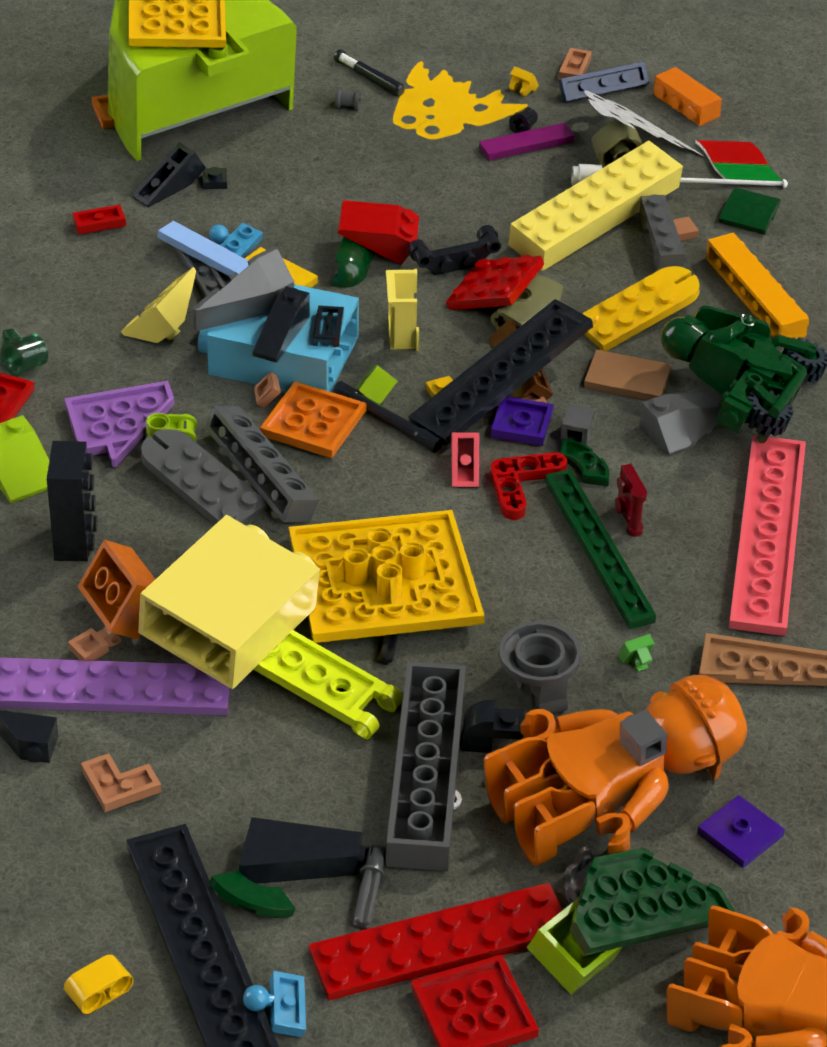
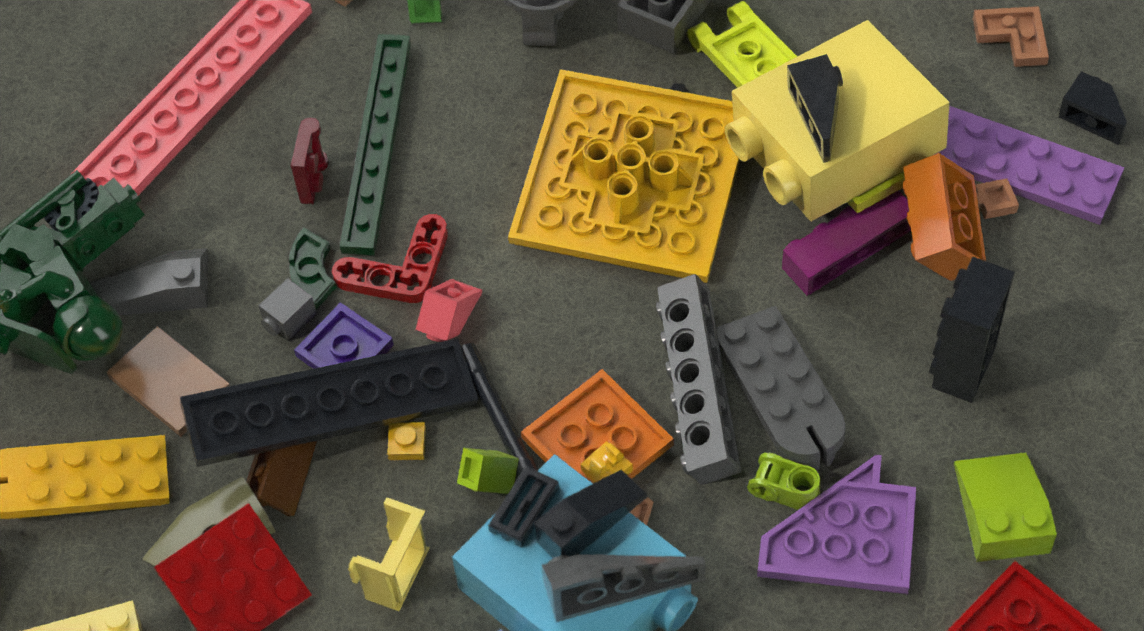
camera: 150 degrees left, 15 degrees up
(246, 557) = (815, 92): none -> black slope
(295, 393) = (605, 462): none -> yellow tile

